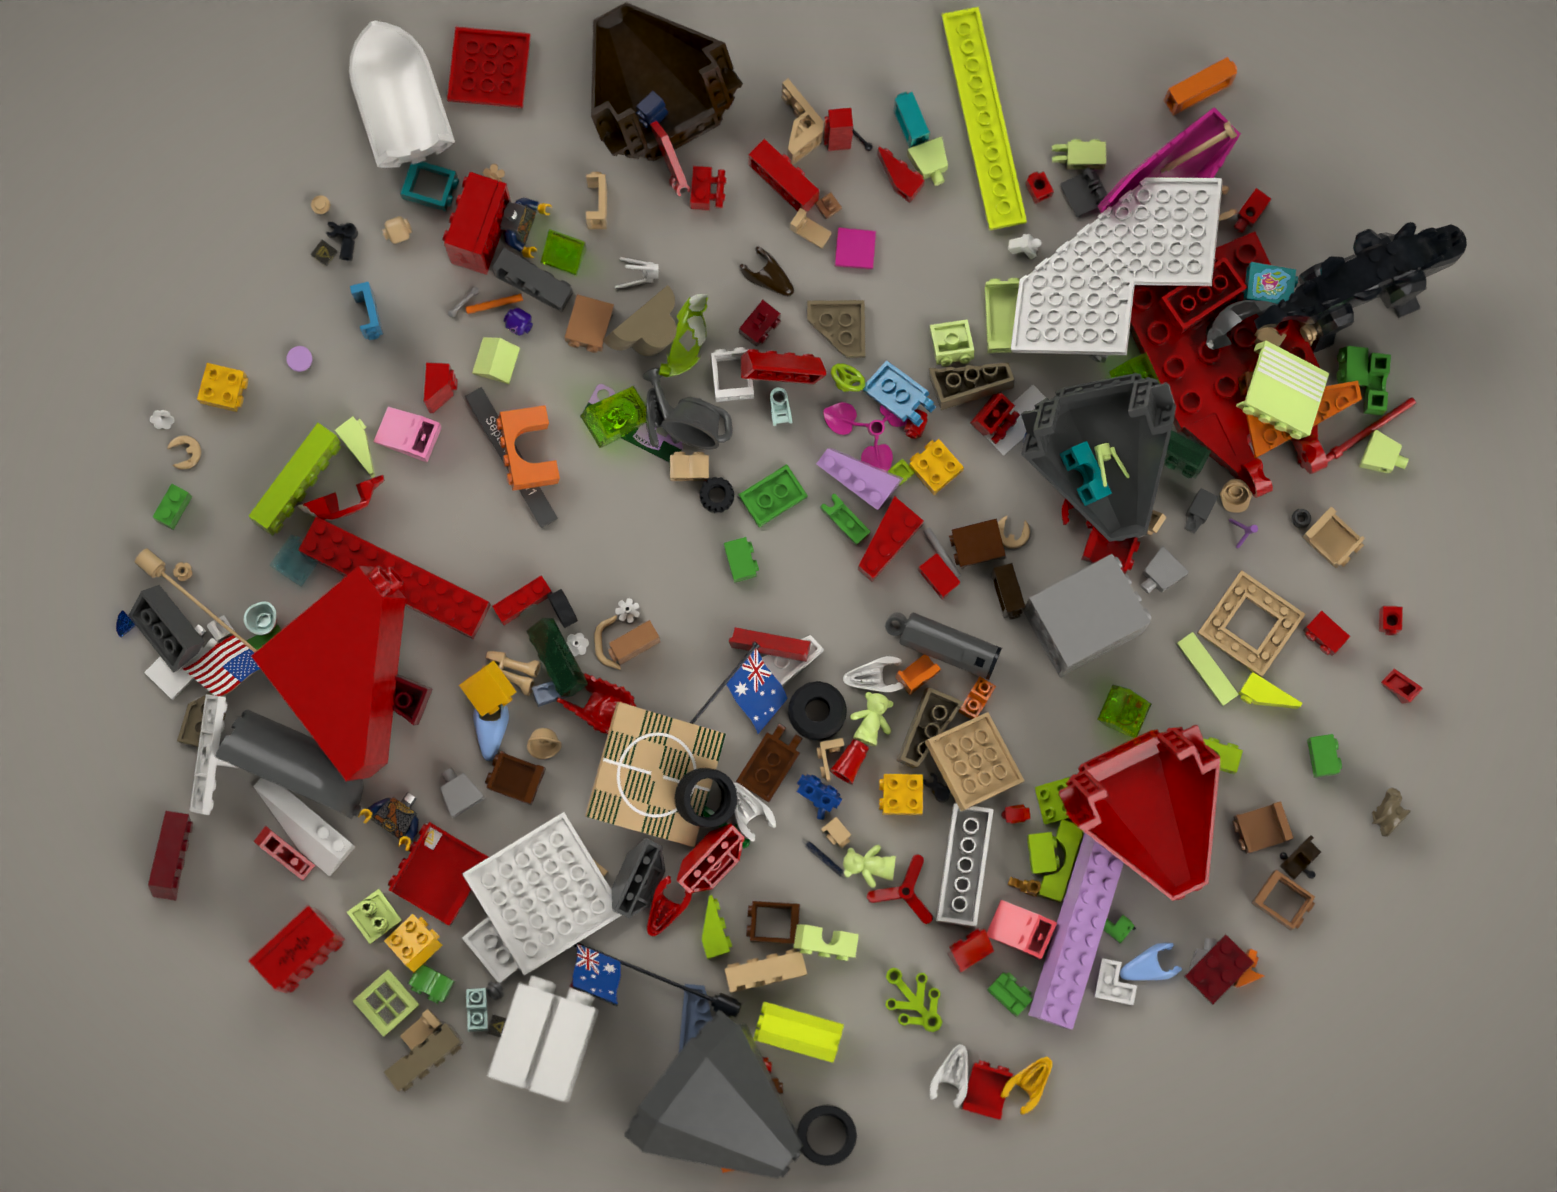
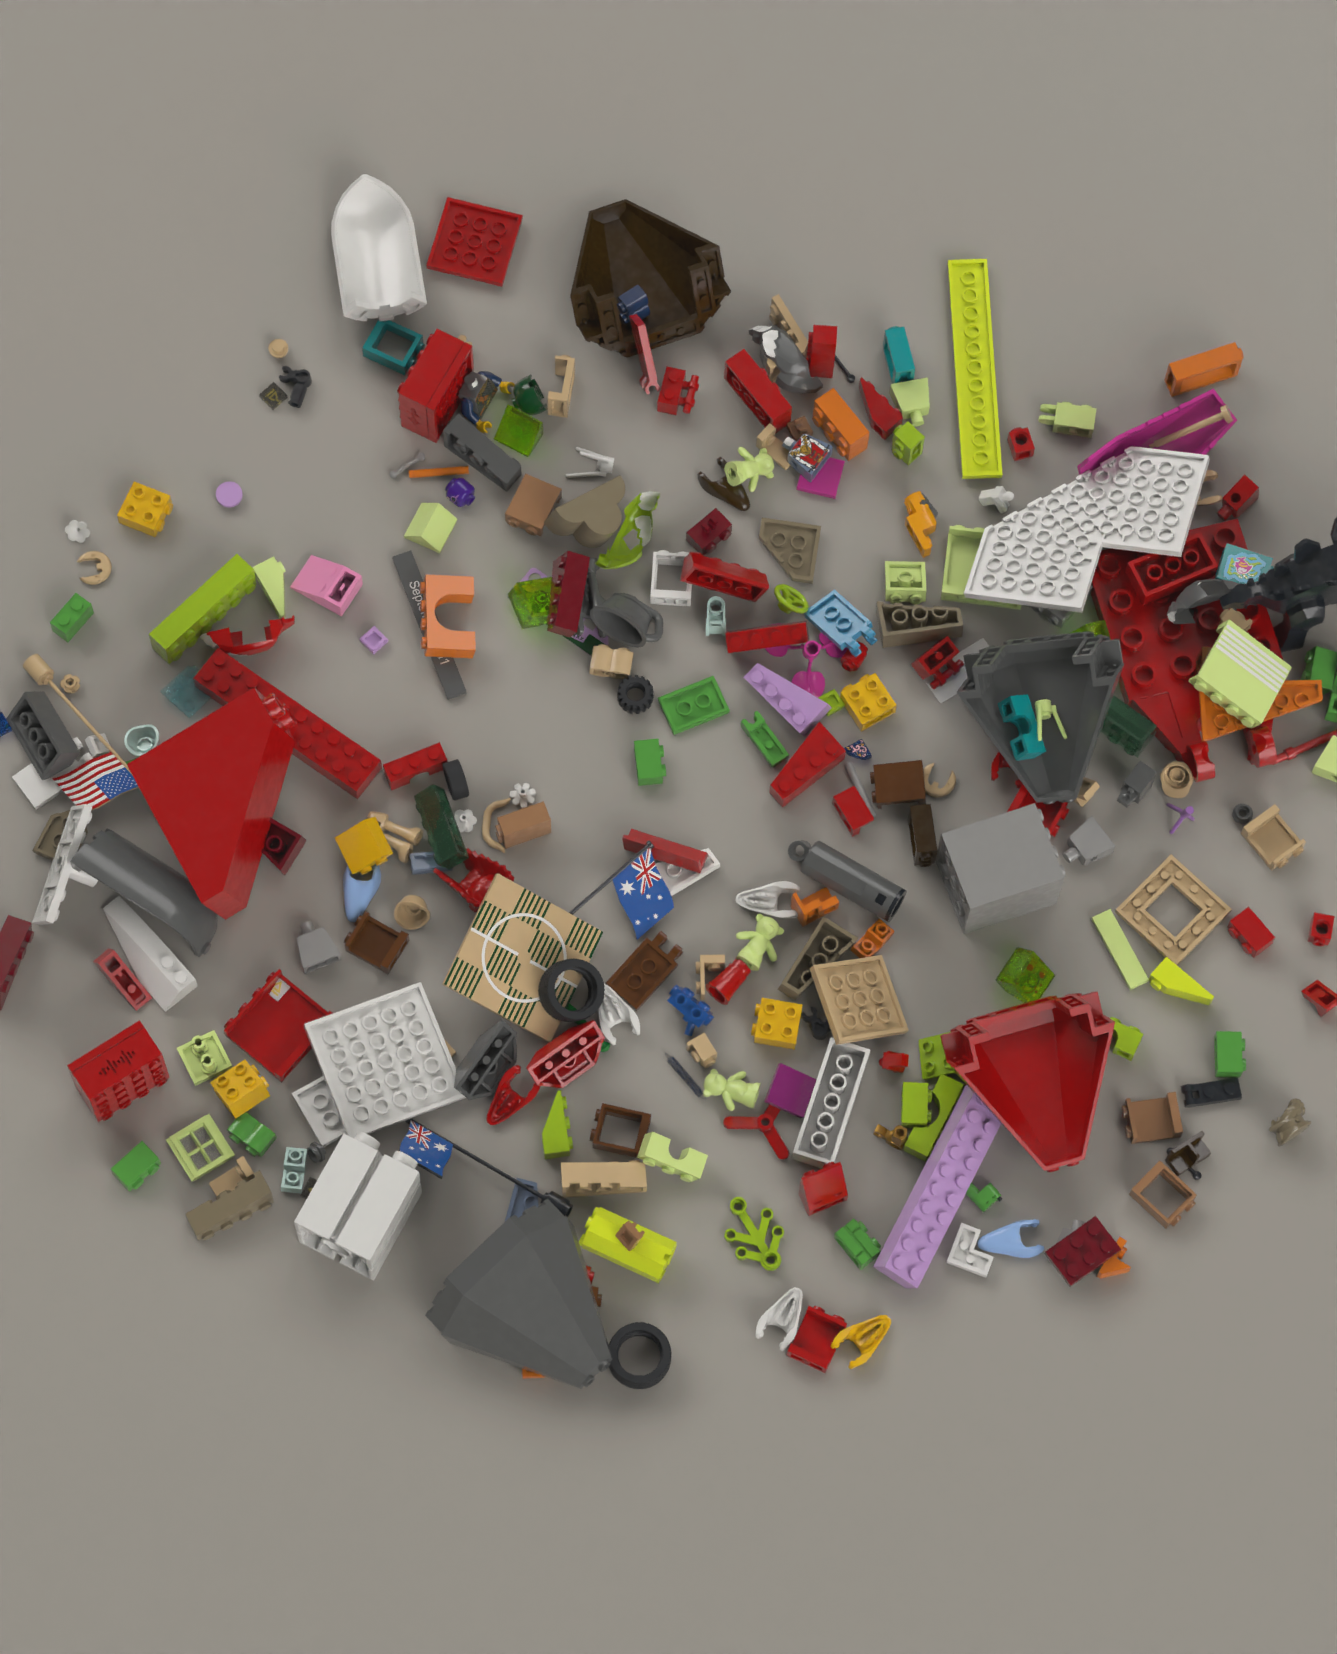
camera: 10 degrees right, 10 degrees down
(329, 1032) = (136, 1166): none -> bright green brick
(364, 292) = (306, 439): dark azure panel -> none
(395, 817) = (243, 961): torso -> none
(397, 230) = (352, 383): tan head -> none
(439, 385) = (367, 538): red slope -> none
(461, 481) = (373, 640): none -> lavender tile
(567, 216) = (528, 396): none -> dark green cylinder
(636, 409) = (567, 593): none -> dark red wedge
(780, 259) = (751, 468): none -> yellowish green piece
(800, 1030) = (629, 1235): none -> medium nougat tile
(802, 135) = (793, 366): none -> dark grey animal
(823, 692) = (703, 905): black tyre -> none
(831, 420) = (767, 636): none -> red brick
(840, 232) = (807, 455): none -> torso
(866, 197) = (840, 424): none -> orange piece
(924, 857) = (790, 1090): none -> magenta tile
(932, 205) = (907, 443): none -> lime brick
(934, 515) = (858, 750): none -> clear blue tile
(958, 279) = (920, 521): none -> light orange plate
(1021, 929) = (881, 1180): coral slope -> none
(1084, 191) = (1066, 455): dark grey hinge -> none
(1308, 332) = (1276, 624): tan plate -> none
(1313, 793) = (1212, 1092): none -> black plate

